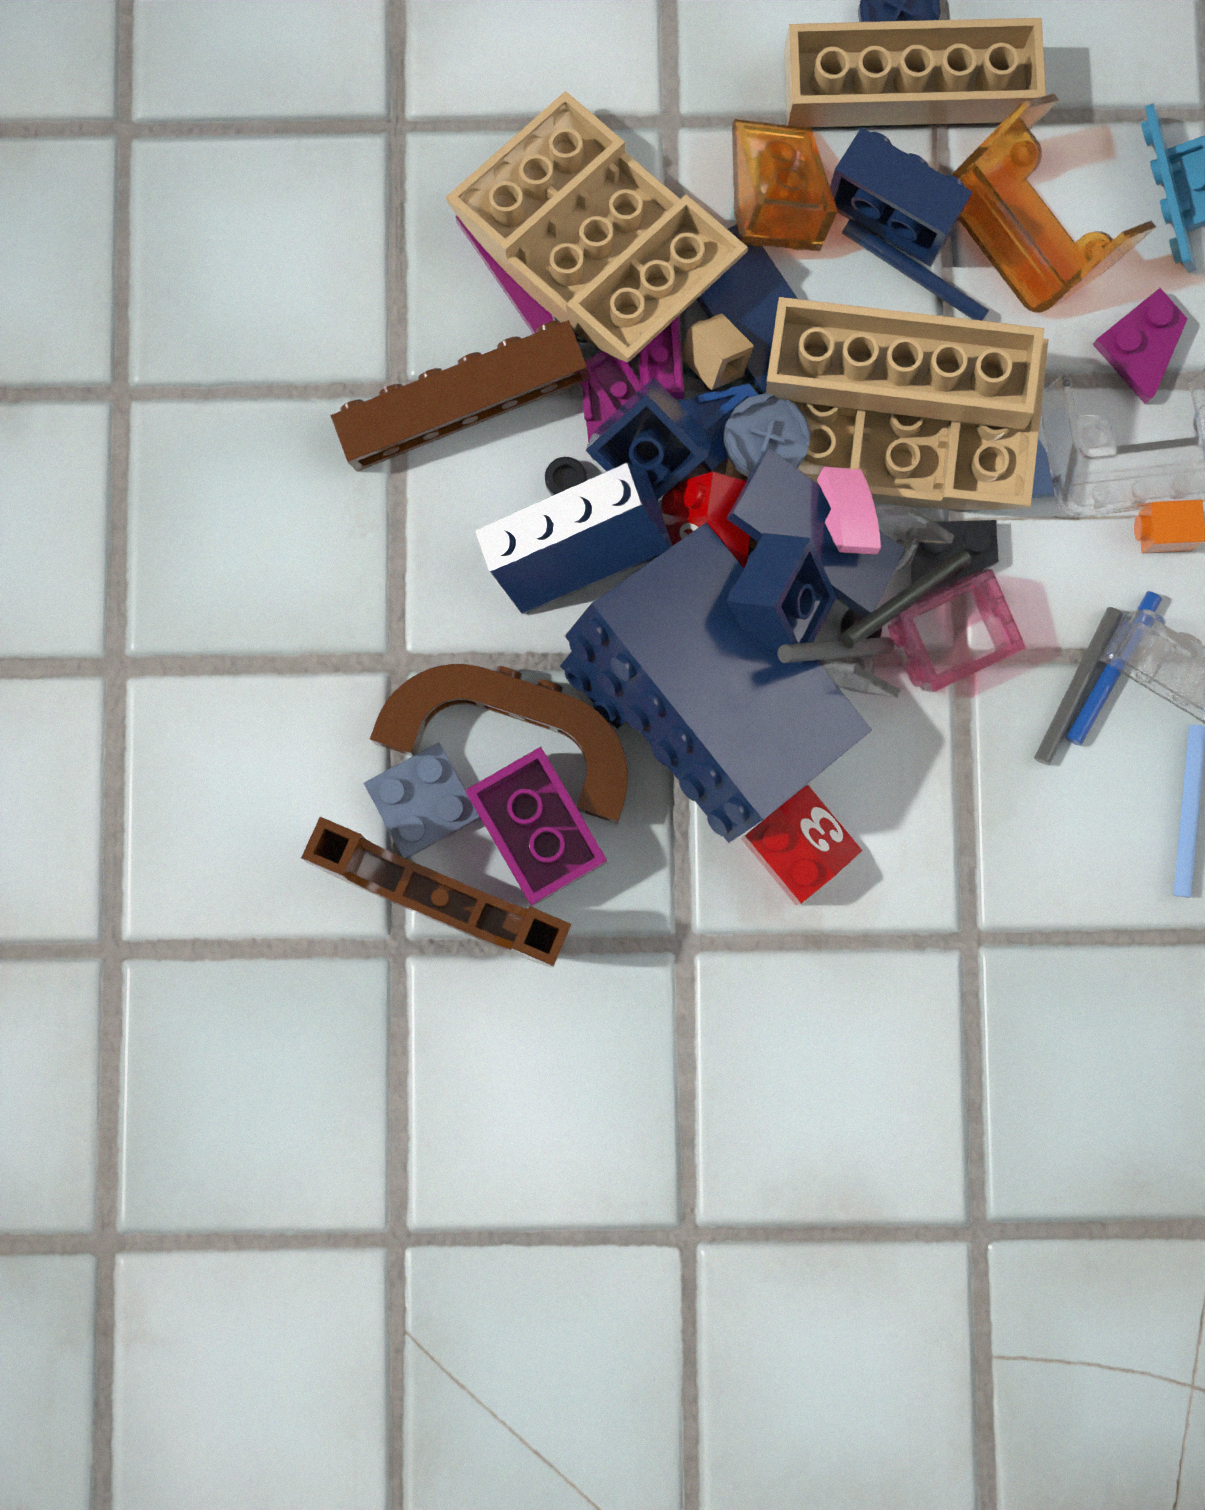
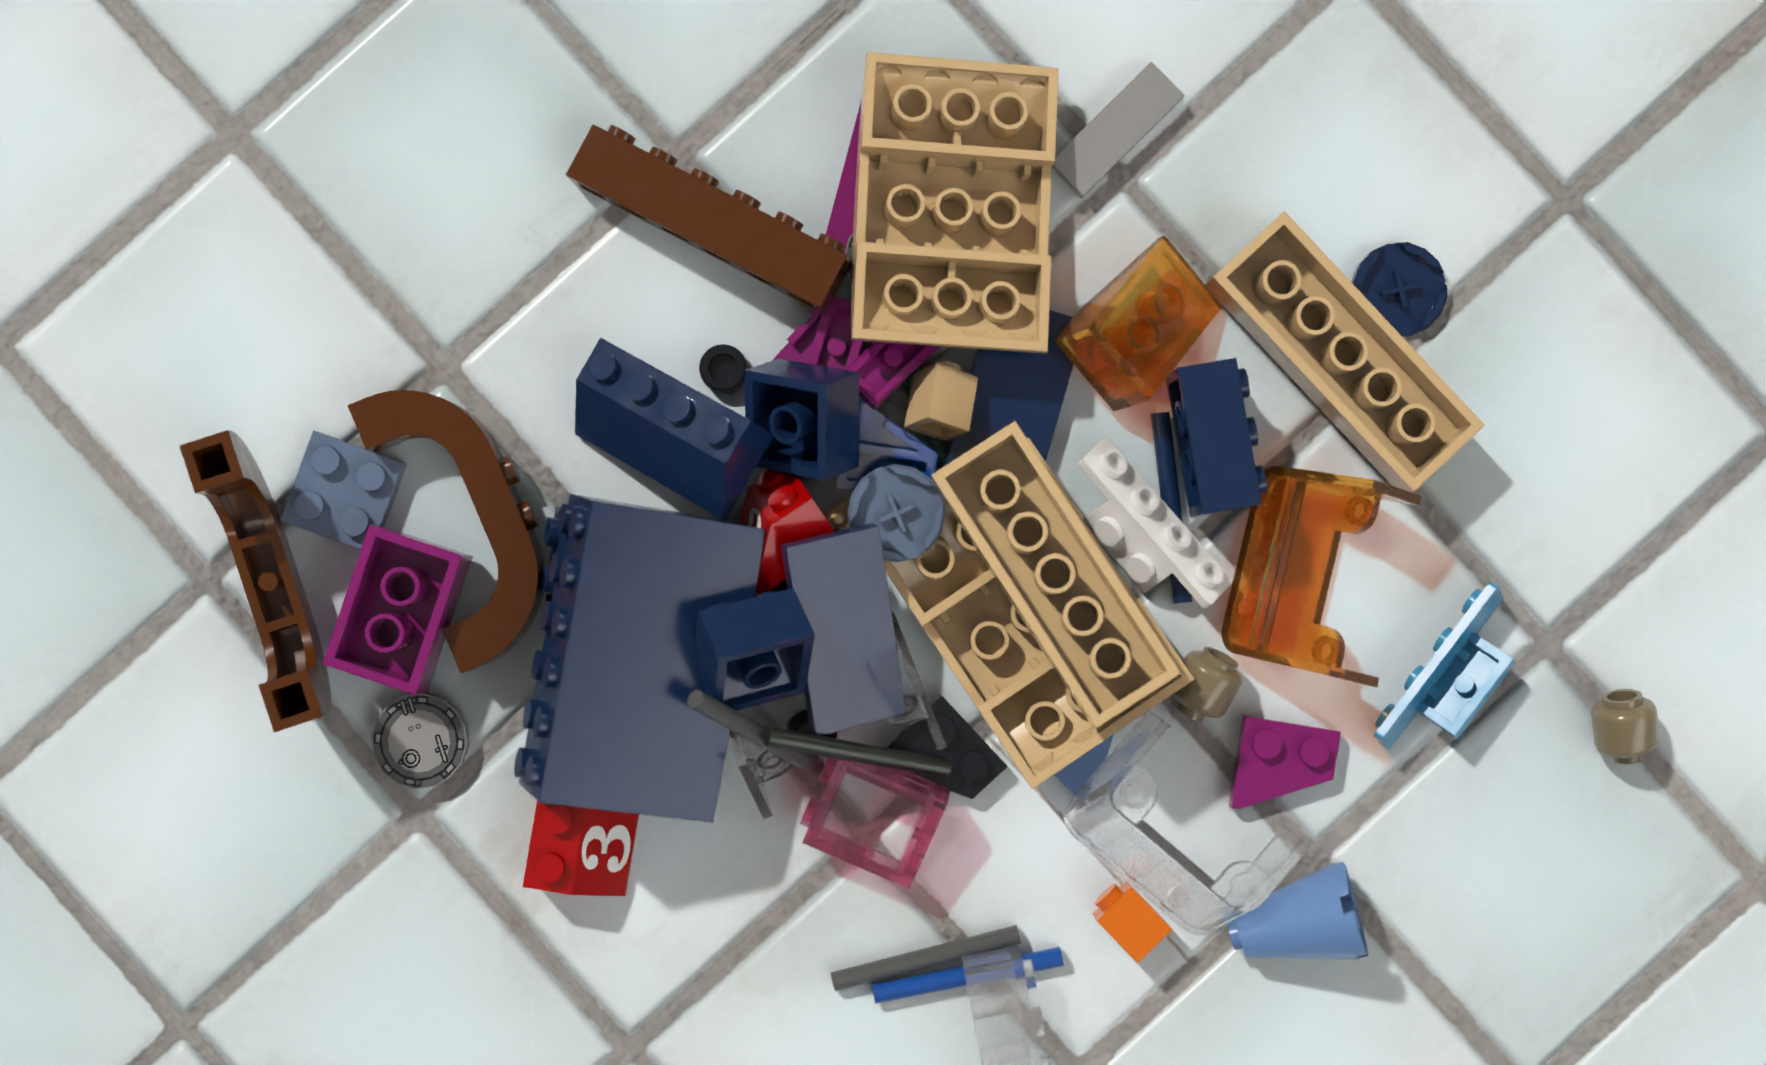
camera: 50 degrees right, 5 degrees up
(636, 94) = (1116, 129): none -> light grey tile
(636, 895) = (420, 740): none -> tile
(852, 513) = (888, 643): bright pink slope -> none
(919, 290) = (1145, 532): none -> white bracket
(1064, 342) = (1213, 684): none -> dark tan head

